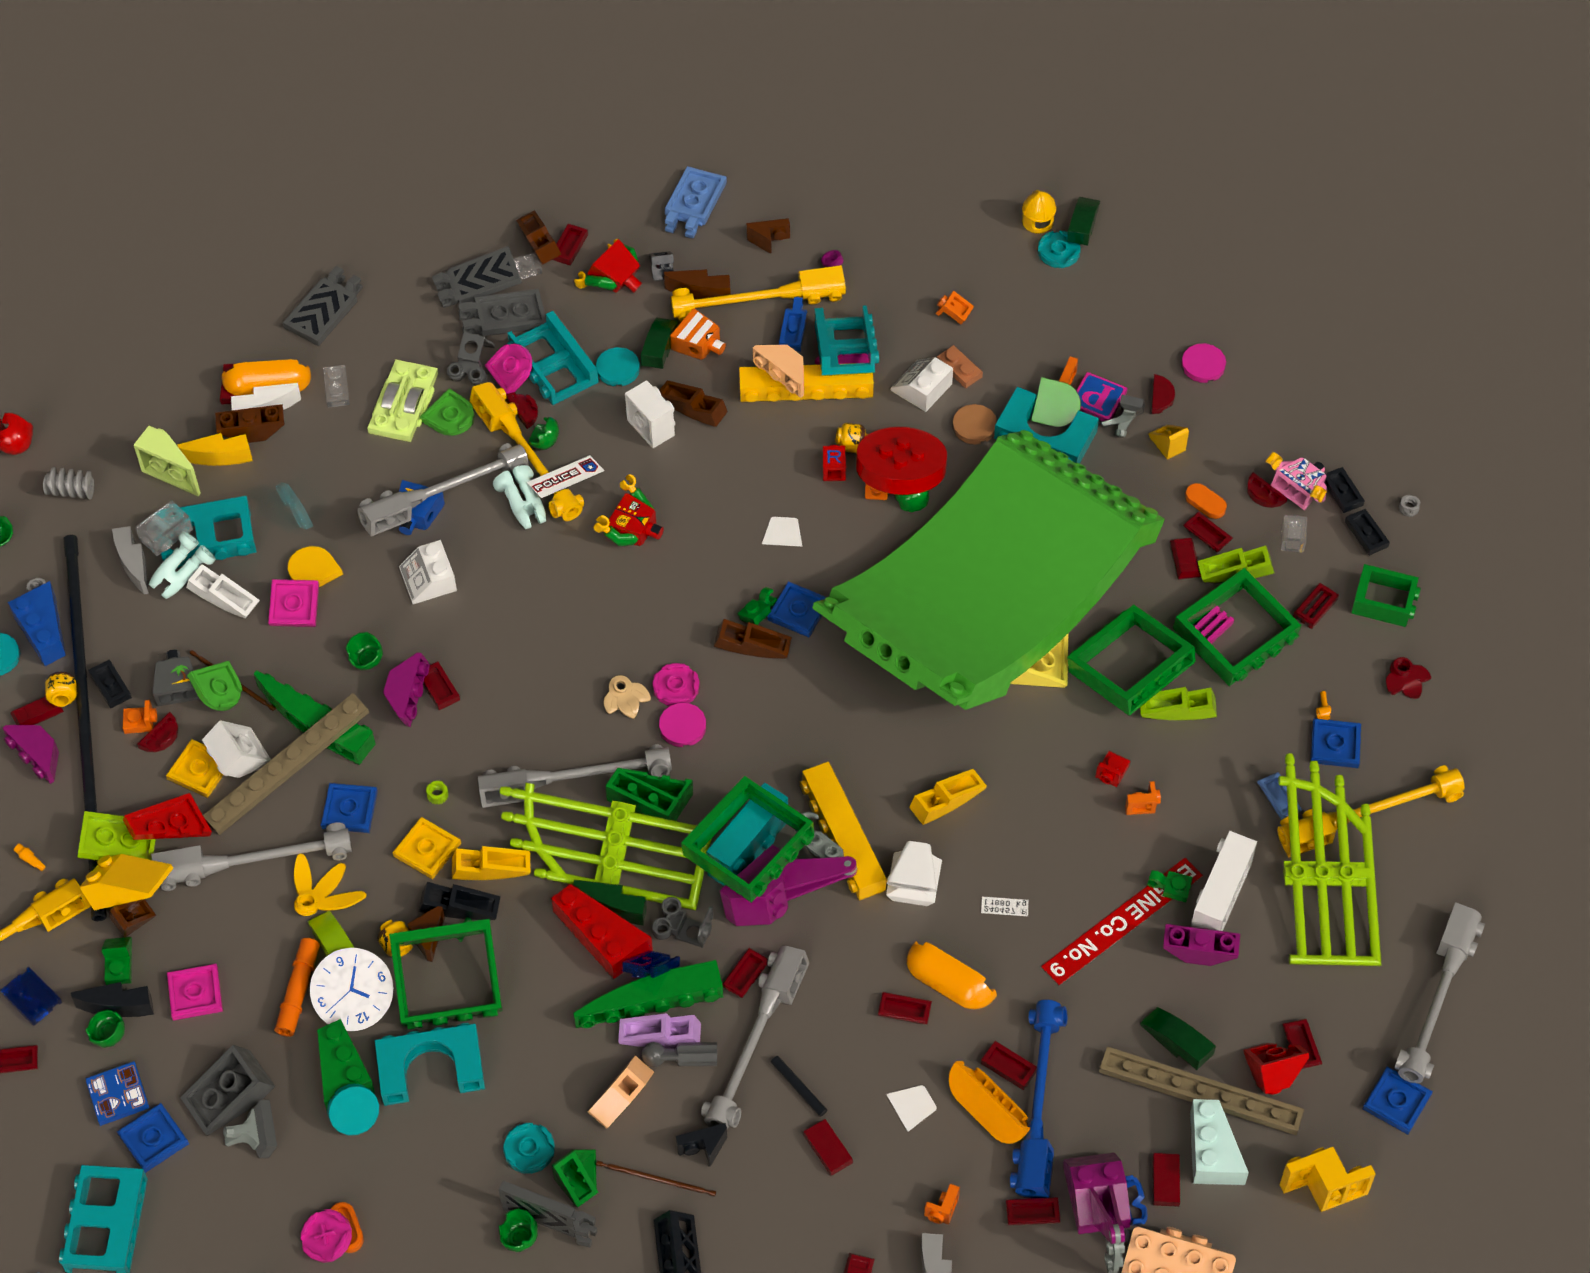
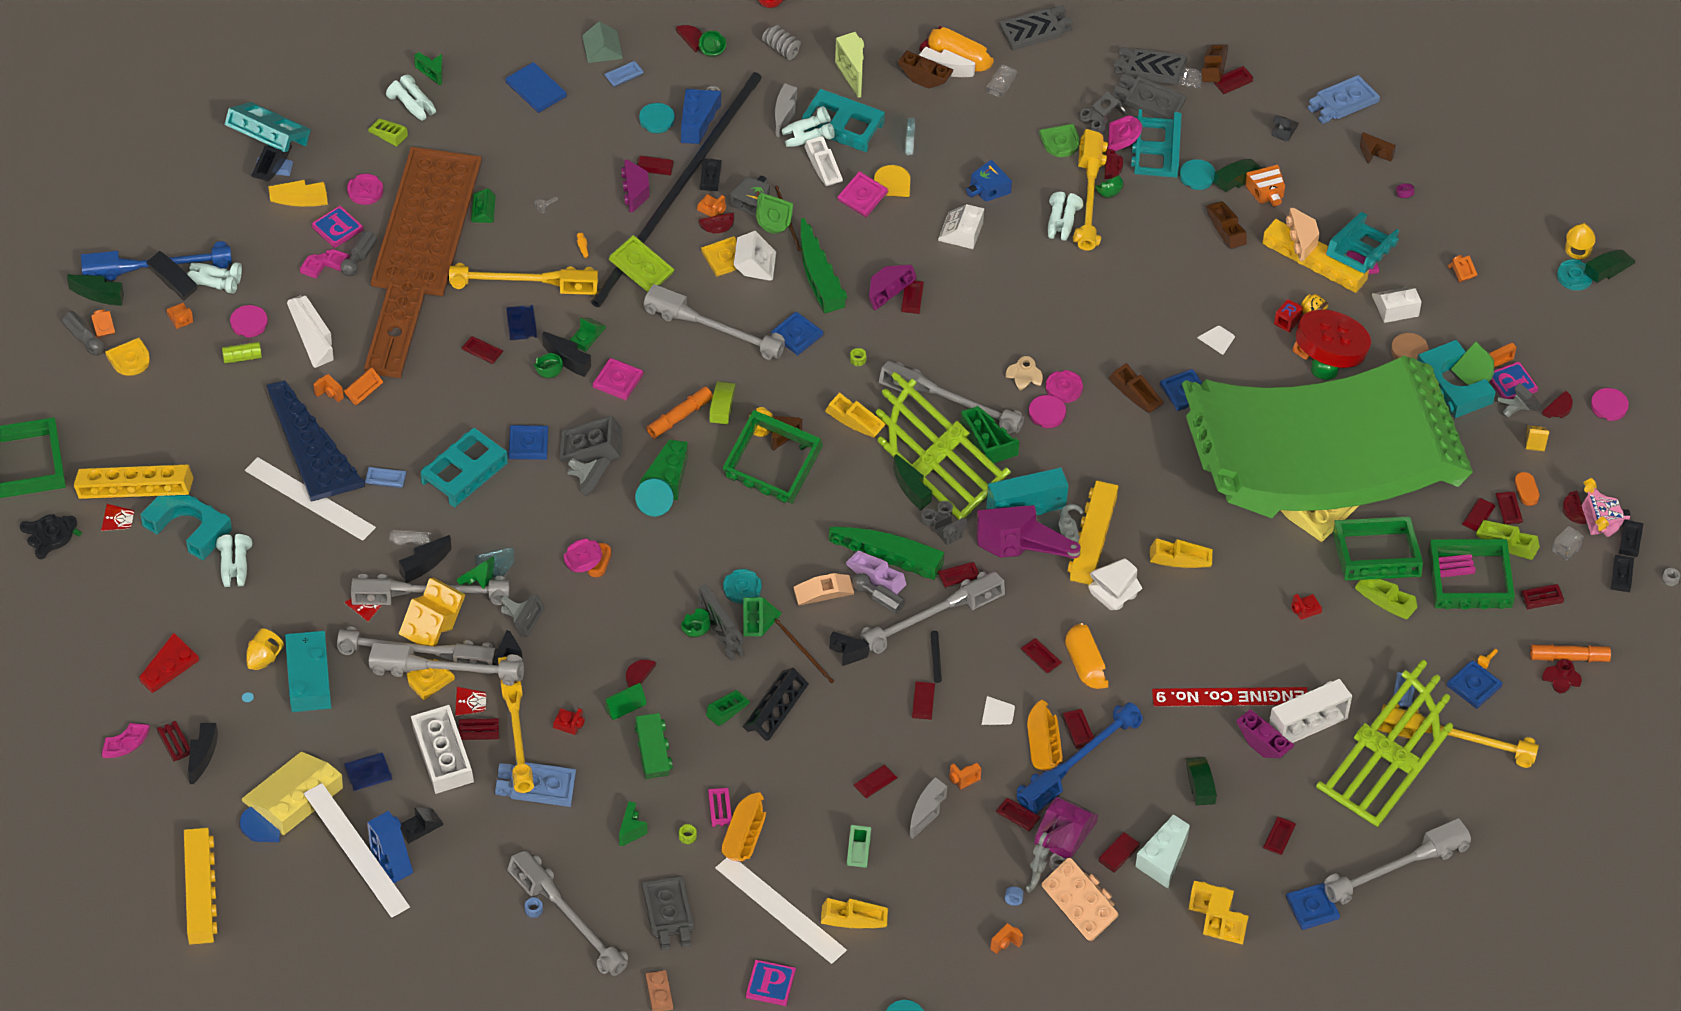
camera: 35 degrees right, 5 degrees down
(60, 688) = (677, 158): yellow head -> none
(117, 1093) = (527, 405): blue tile -> none
(123, 880) = (622, 285): yellow slope -> none
(131, 916) = (615, 312): reddish brown slope -> none
(163, 528) = (812, 97): clear brick -> none
(168, 819) = (680, 271): red wing -> none
(216, 451) = (891, 75): yellow slope -> none
(286, 764) = (777, 282): dark tan plate -> none
(311, 900) = (728, 370): yellow plant -> none
(351, 988) = (710, 431): flat silver sticker -> none
(364, 651) = (881, 247): green hair -> none
(396, 508) = (969, 172): light grey bar -> none
(398, 1052) = (707, 485): teal arch -> none
(403, 400) = (1038, 113): yellowish green piece -> none
(426, 848) = (824, 384): yellow tile -> none
(459, 902) = (817, 425): black slope -> none
(565, 476) = (1101, 220): white sticker -> none
(600, 930) = (890, 498): red wedge -> none
(612, 269) = (1246, 110): red torso -> none
(632, 519) = (1120, 271): torso -> none
(650, 413) = (1189, 213): white slope -> none
(650, 962) = (901, 529): clear blue plate -> none
(698, 283) = (1298, 154): reddish brown slope -> none
(719, 816) = (1012, 467): green window -> none
(758, 610) = (1157, 373): green plate -> none
(794, 325) = (1339, 216): blue hinge -> none
(810, 286) = (1373, 198): yellow bar -> none
(963, 369) = (1433, 307): nougat plate -> none
(1004, 906) = (1160, 641): clear sticker -> none
(1131, 1180) = (1089, 835): blue helmet -> none
(1143, 803) = (1307, 637): orange bracket -> none
(1174, 885) = (1279, 694): green plate -> none
(1192, 1086) = (1199, 831): dark tan plate -> none
(1275, 1066) = (1247, 834): red slope -> none
(1383, 611) = (1585, 628): green window -> none
(1393, 649) = (1572, 653): none -> orange piece

